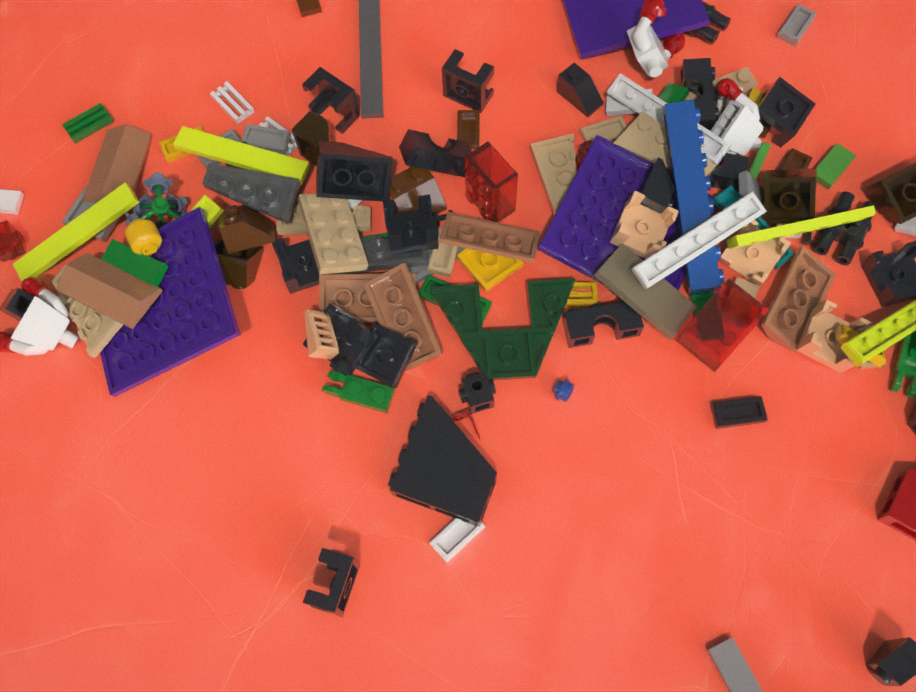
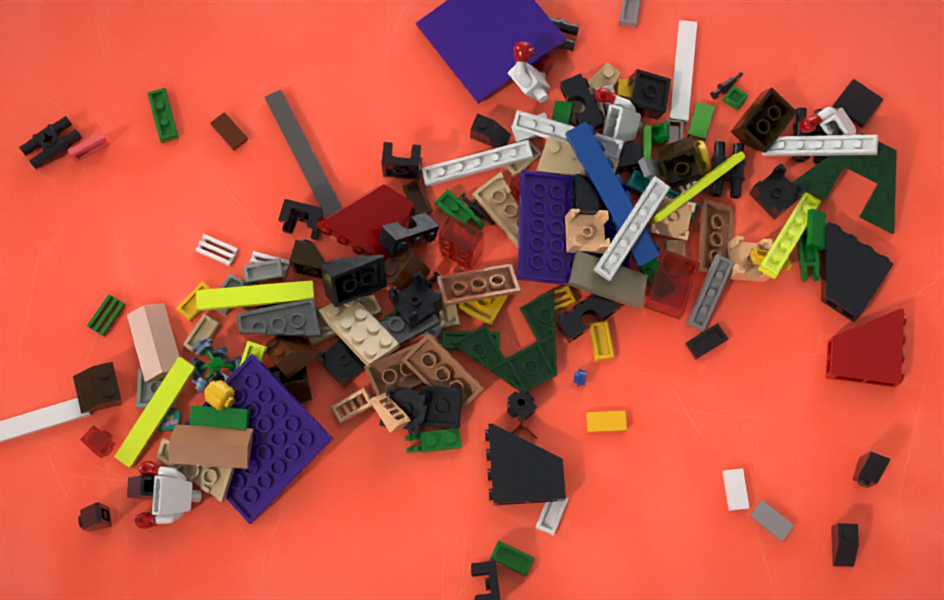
camera: 30 degrees left, 5 degrees up
(36, 187) = (97, 388): none -> dark brown slope
(91, 247) = (170, 420): none -> tile
(180, 174) = (204, 328): none -> tan tile
(291, 322) = (350, 399): none -> light nougat slope
(383, 567) = (512, 558): none -> green tile
(387, 117) = (361, 220): none -> red slope
(504, 145) = (455, 207): none -> green hinge
(527, 161) = (473, 206): none -> black piece
(551, 117) = (477, 163): none -> white tile
(572, 454) = (606, 421): none -> yellow tile
(608, 360) = (601, 341): none -> yellow tile
(702, 608) = (735, 489): none -> white tile
(766, 355) = (709, 292): none -> light grey tile
(778, 159) = (660, 133): none -> green tile
(822, 197) = (703, 155): none -> yellow tile
(833, 106) = (683, 70): none -> white tile
(876, 139) = (723, 87): none -> black piece
(885, 156) = (735, 97): none -> green tile

